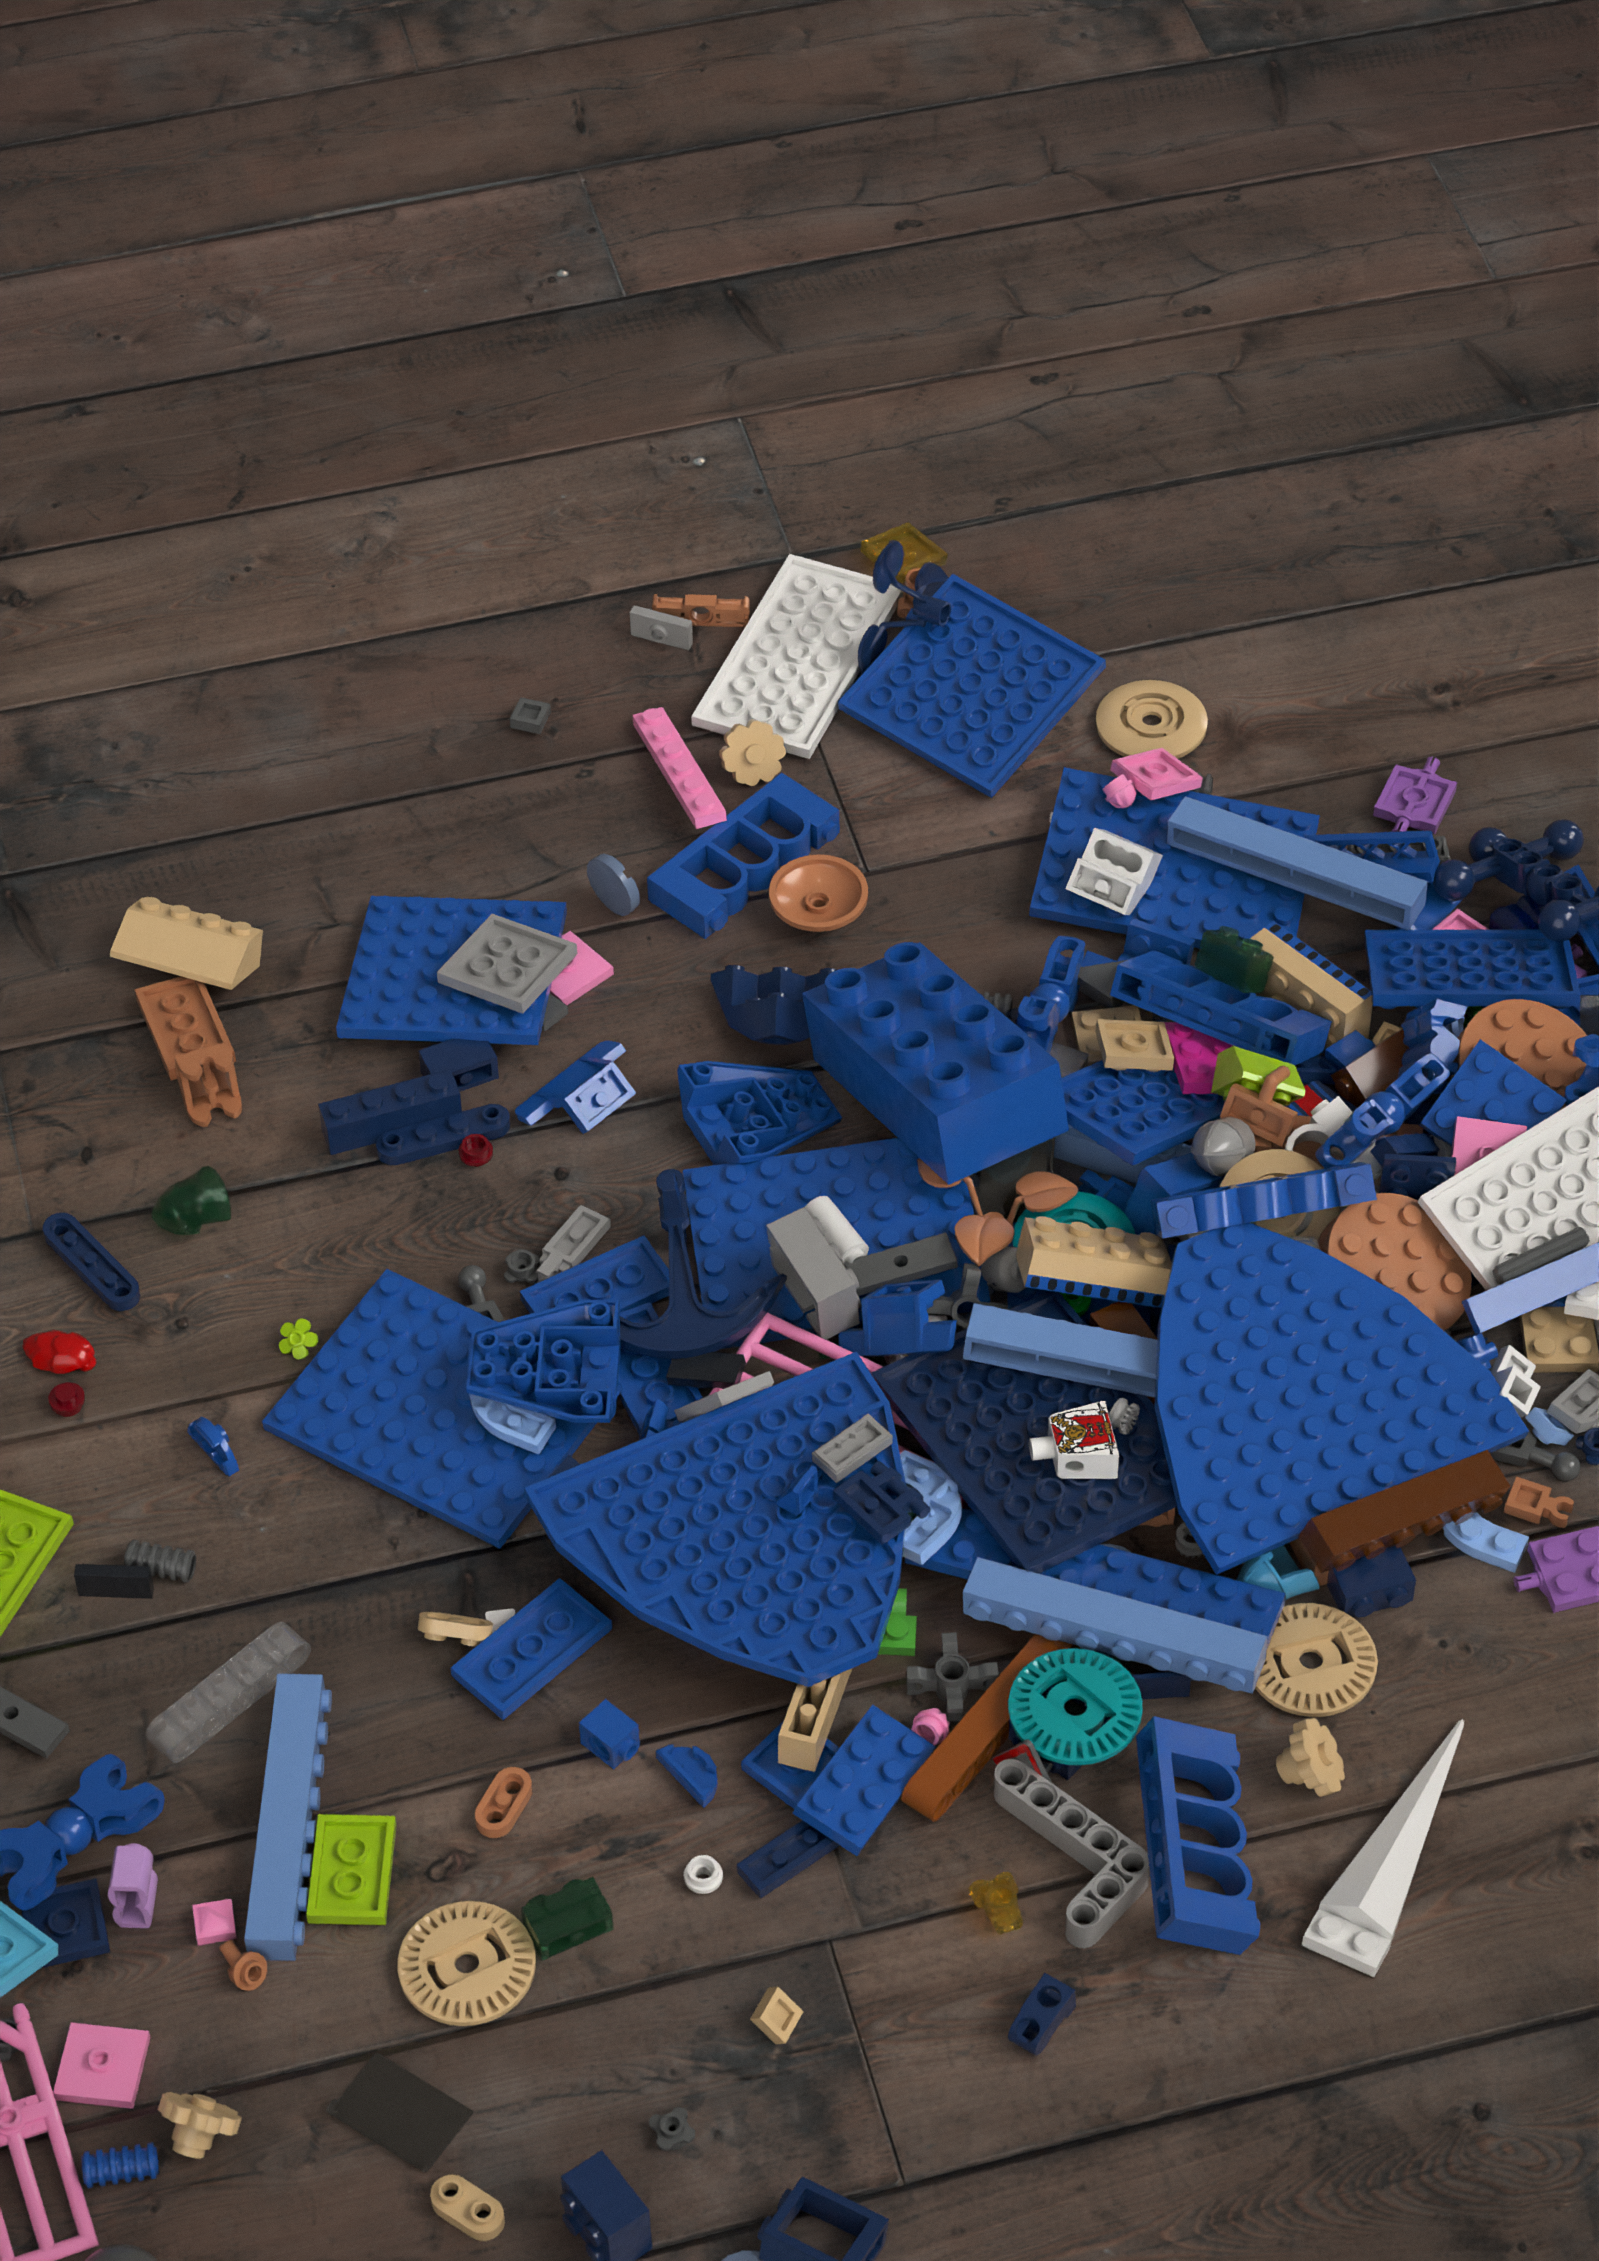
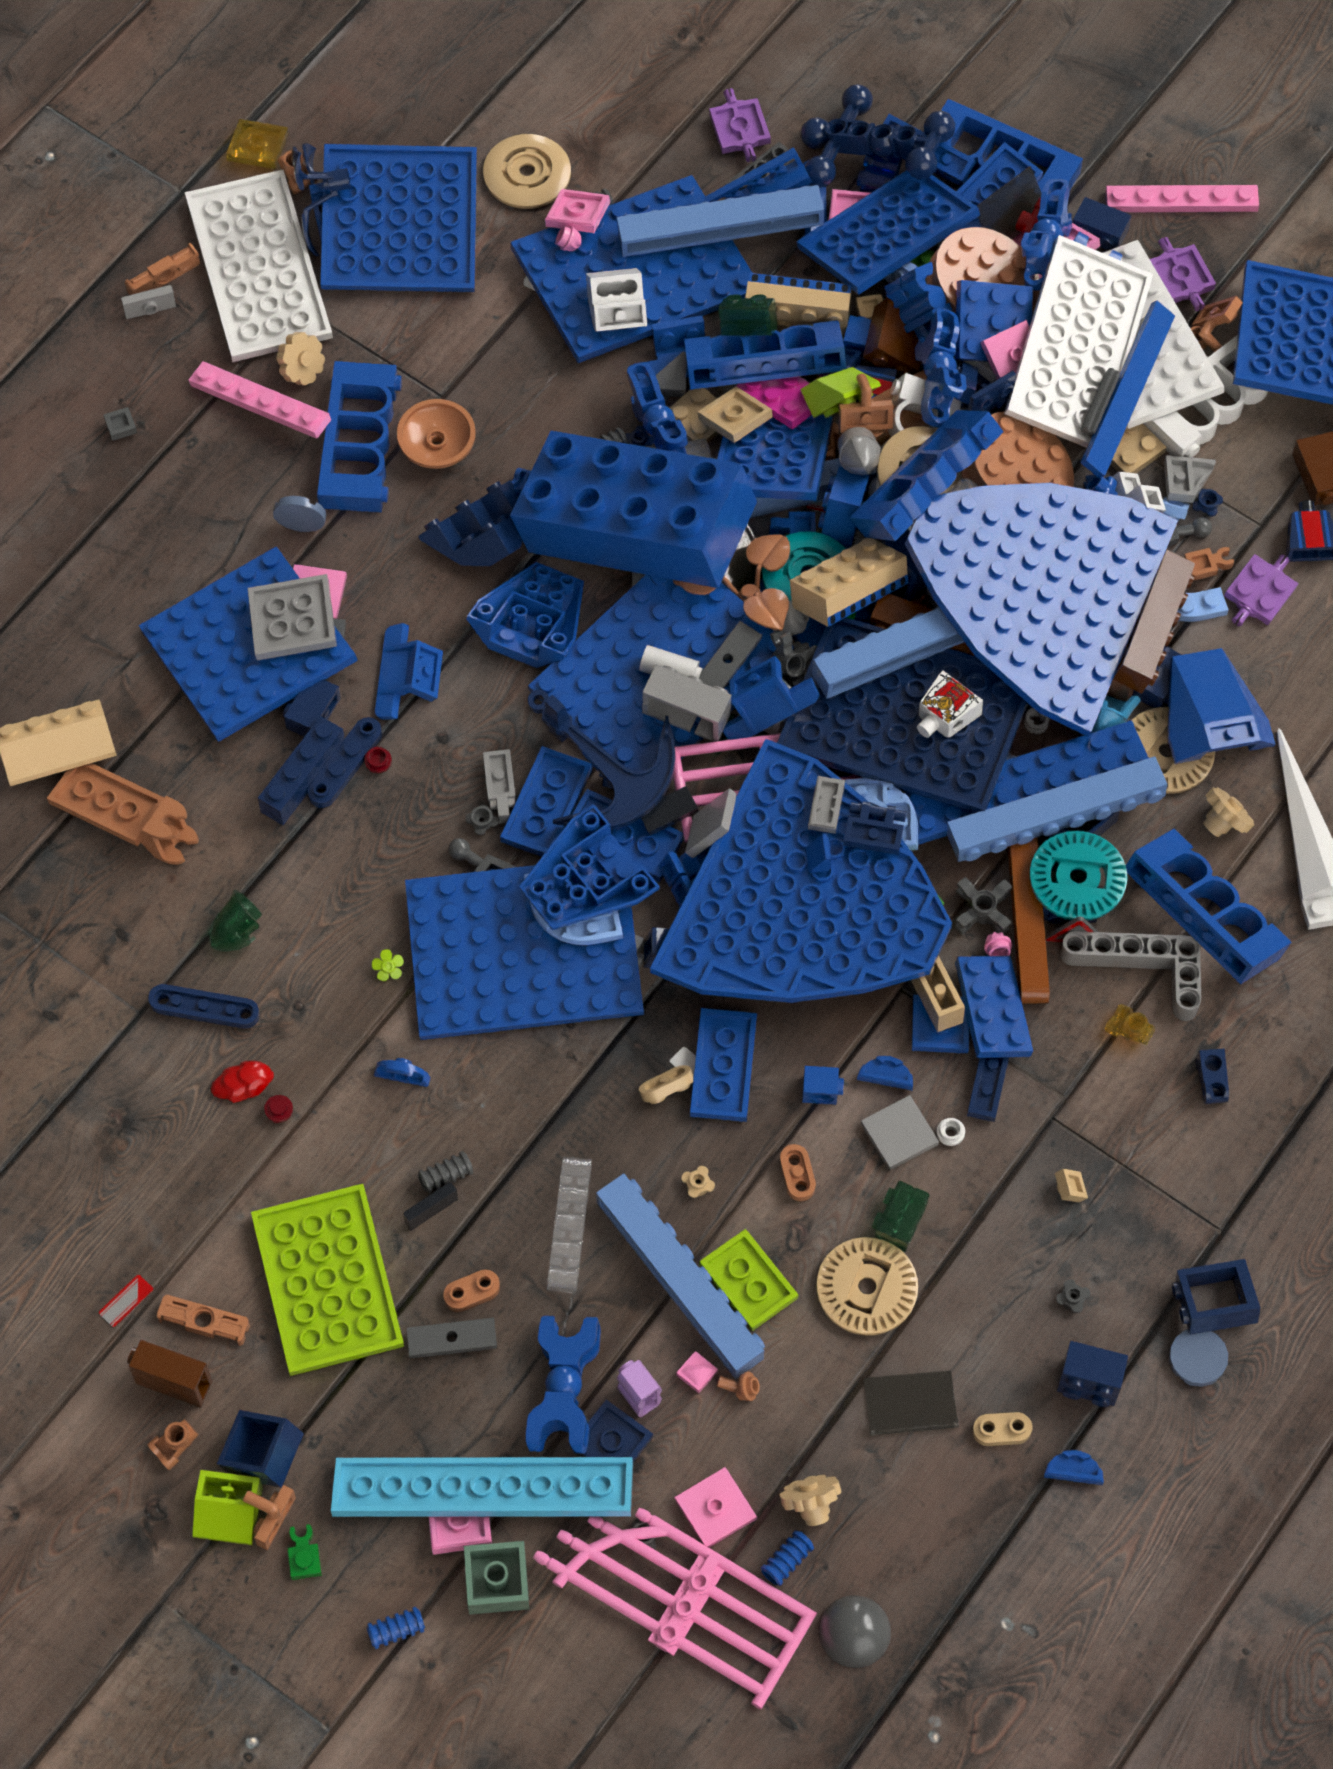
camera: 40 degrees left, 15 degrees up
(75, 1687) = (472, 1291): none -> nougat plate
(395, 1751) = (694, 1189): none -> tan plate
(649, 1839) = (899, 1132): none -> light grey tile
(1123, 1415) = (954, 671): light grey bush -> none
(1396, 1642) = (1212, 708): none -> blue wedge

